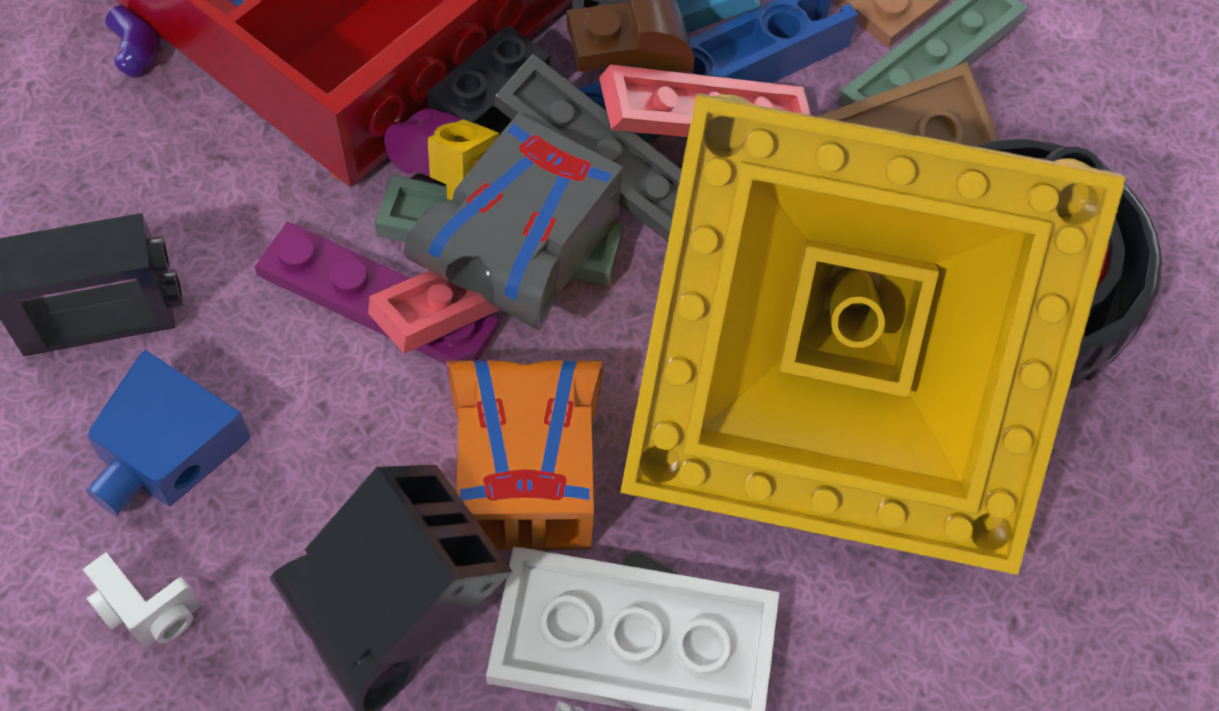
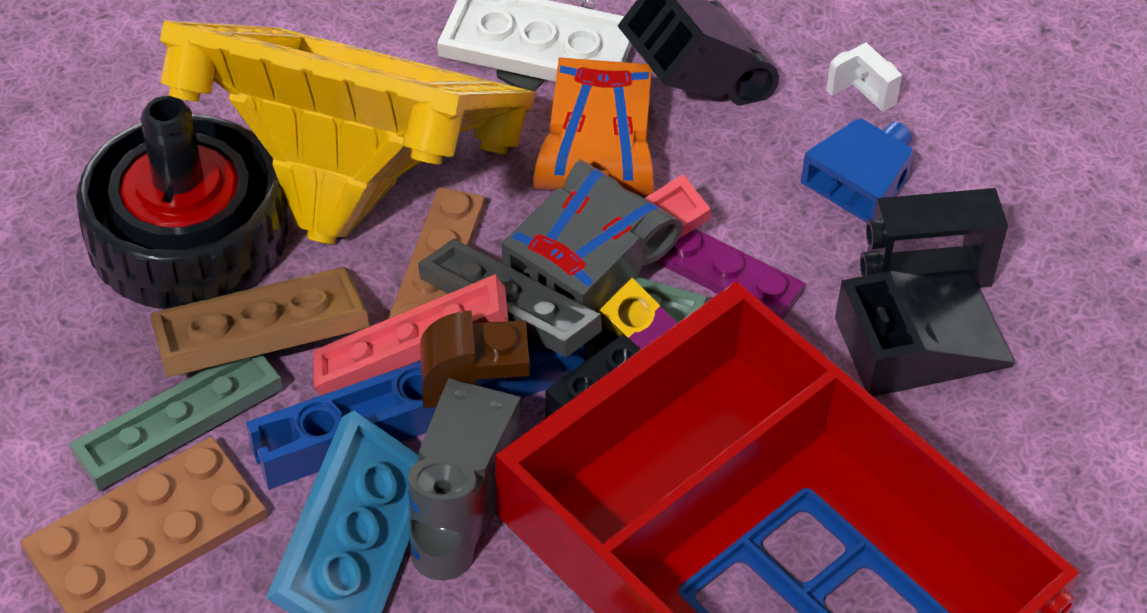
camera: 170 degrees left, 10 degrees down
(124, 170) = (917, 331): none -> black slope

